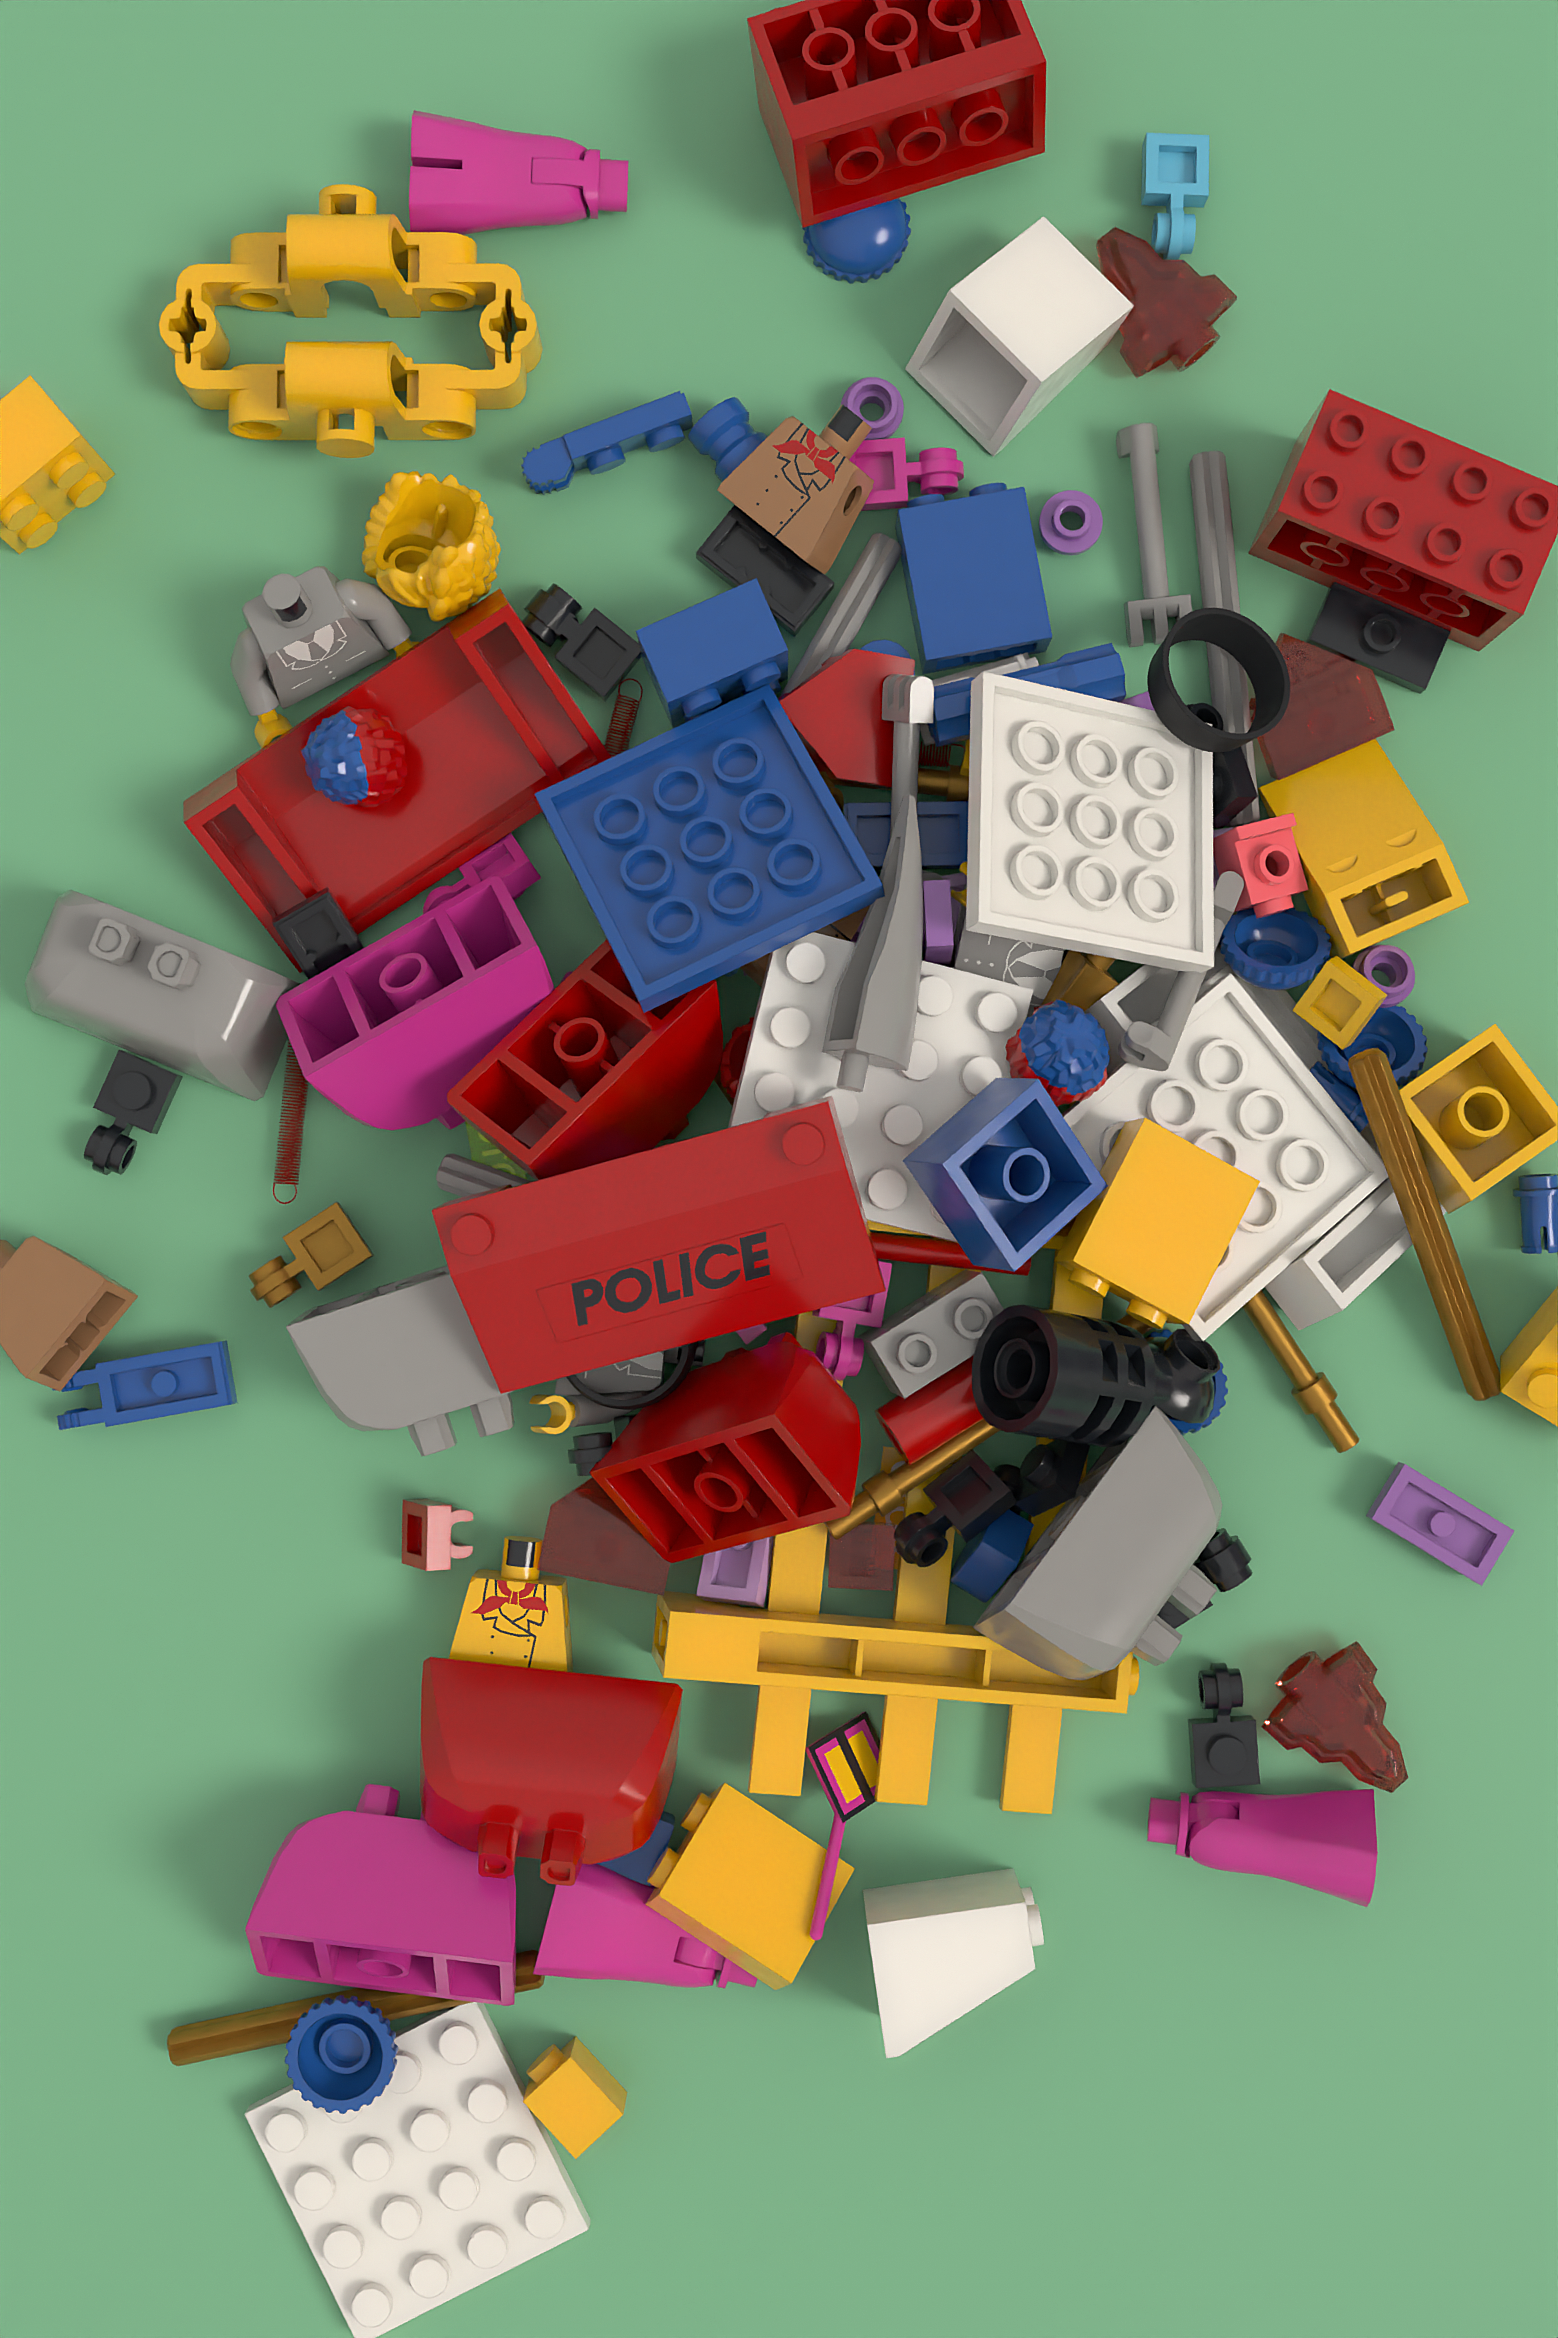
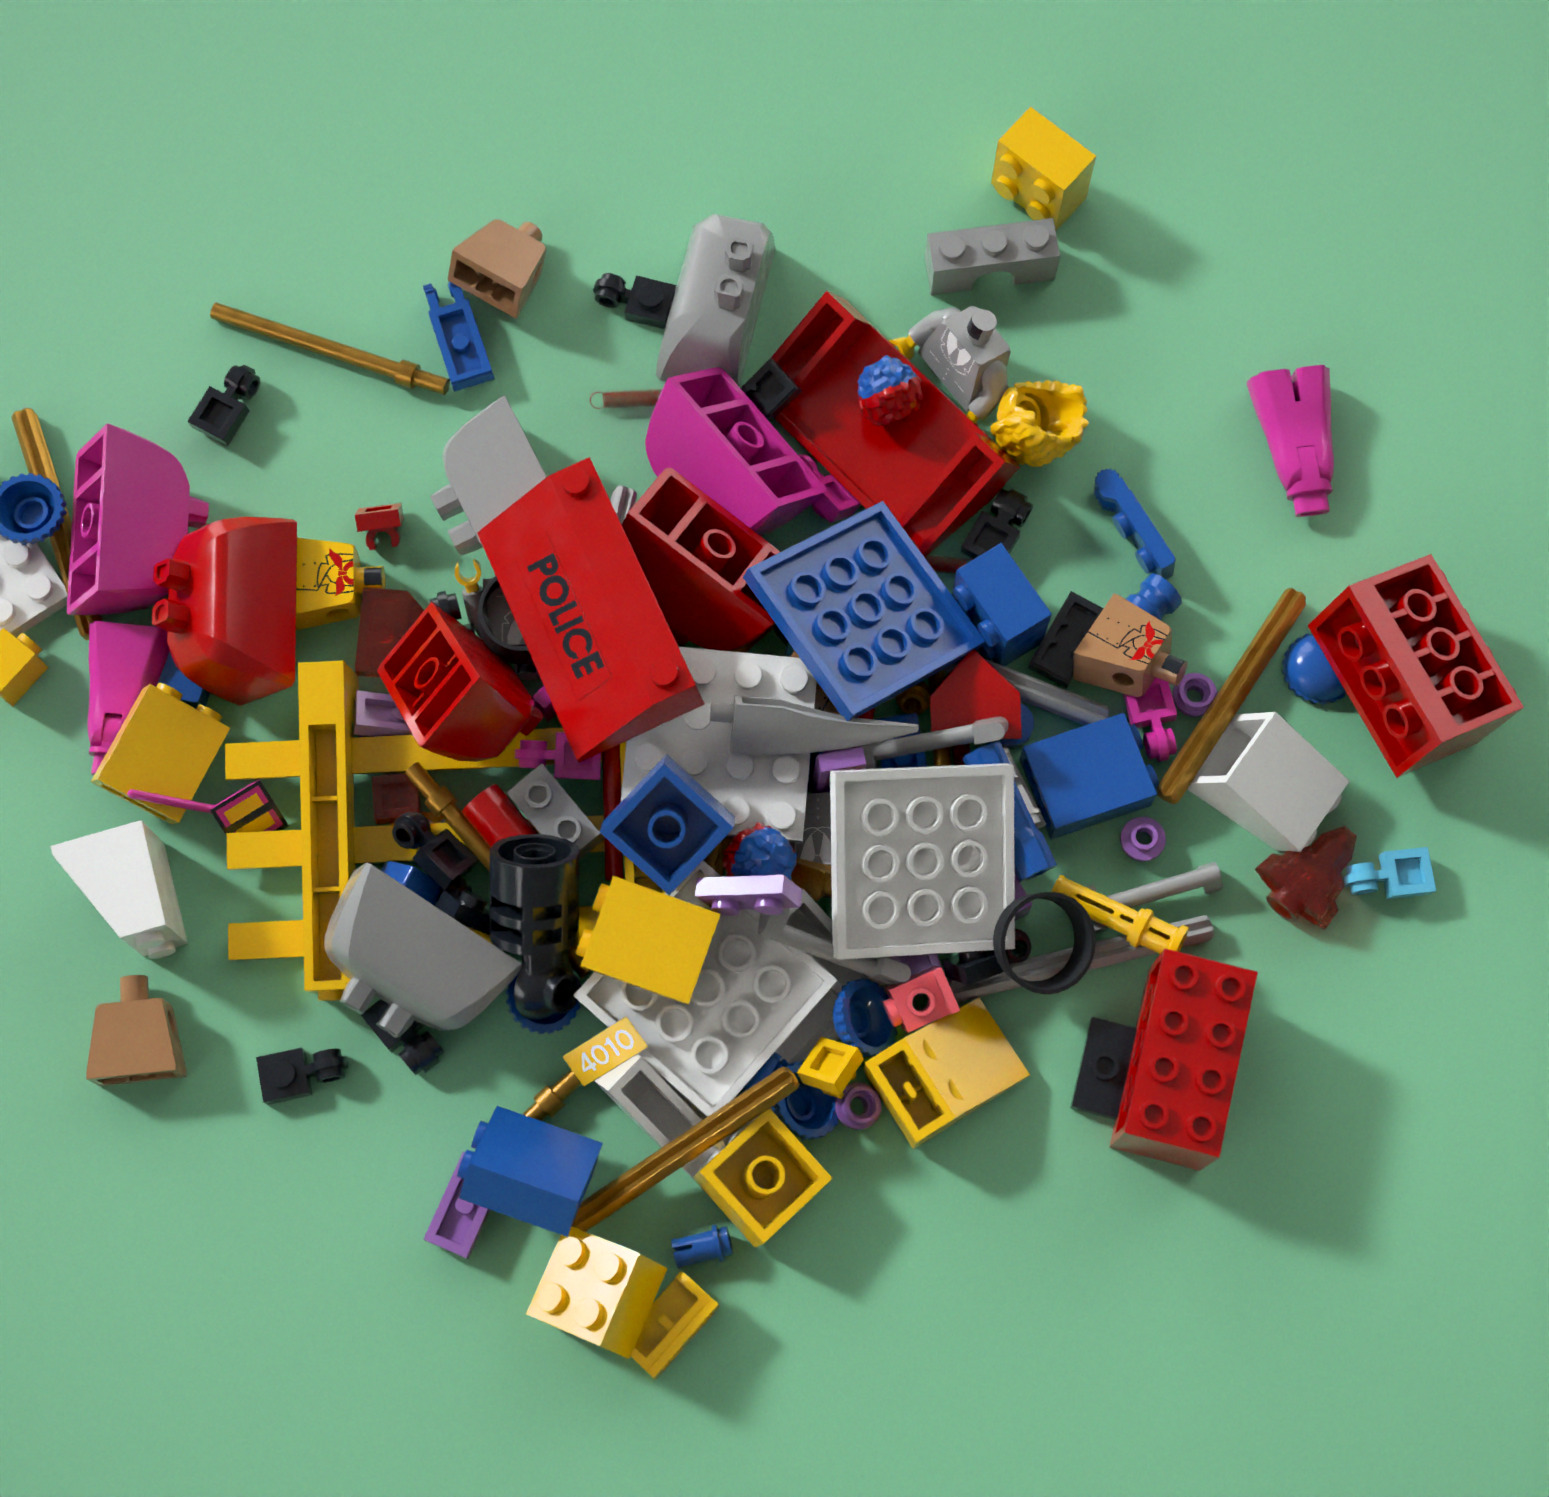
camera: 80 degrees right, 15 degrees down
(146, 537) = (1021, 248): none -> light grey arch
(196, 1472) = (404, 373): none -> pearl gold bar
(220, 1755) = (221, 413): none -> black plate
(323, 1248) = (560, 427): pearl gold plate -> none
(350, 377) = (1131, 337): yellow piece -> none
(884, 356) = (1231, 696): none -> pearl gold axle
(1131, 1047) = (762, 893): none -> medium lavender plate
(1148, 1952) = (134, 1038): none -> medium nougat torso
(1200, 541) = (1141, 926): none -> yellow pin
(1277, 1307) = (605, 1051): none -> yellow sticker
(1301, 1838) = (225, 1133): dark pink piece -> none
(1328, 710) = (1043, 1029): clear red slope -> none
(1338, 1716) = (316, 1152): clear red rock -> none
(1424, 1431) = (528, 1170): none -> blue brick

